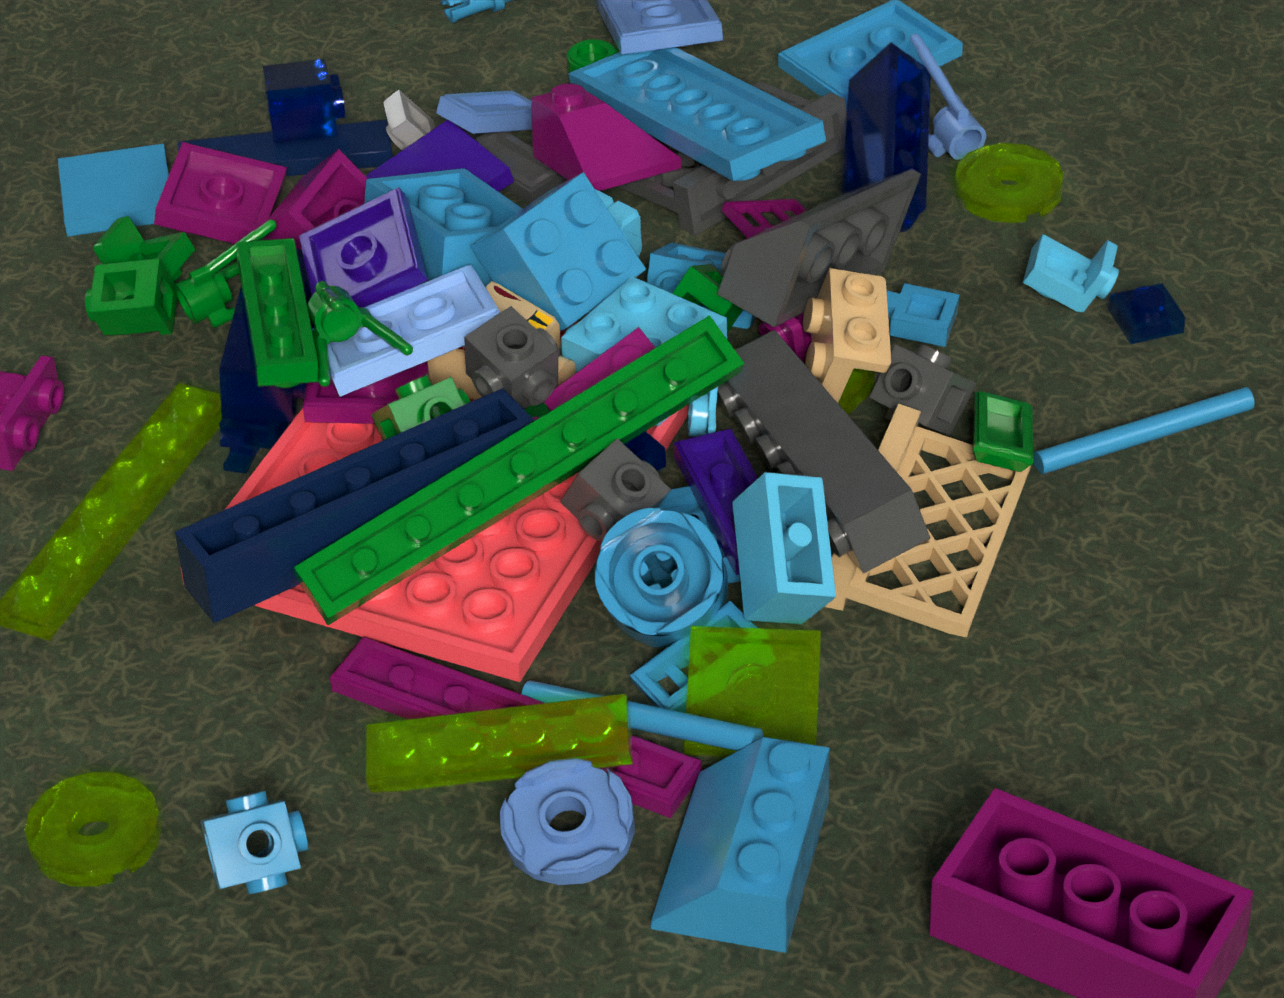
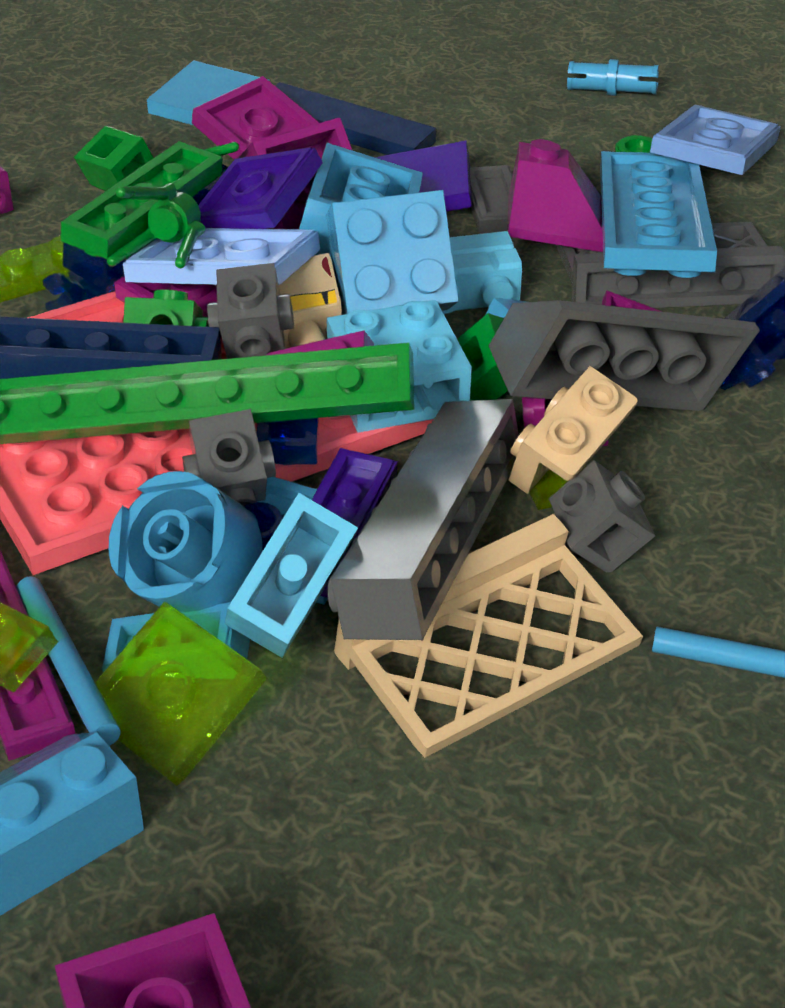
camera: 35 degrees right, 0 degrees up
(125, 244) = (157, 129): green bracket -> none
(302, 100) = (378, 85): clear blue brick -> none
(405, 120) = (441, 128): light grey plate -> none
(487, 111) = (491, 144): medium blue tile -> none
(703, 415) = (403, 437): medium azure plate -> none
(922, 314) = (676, 455): dark azure plate -> none
(1002, 431) = (638, 590): green tile -> none

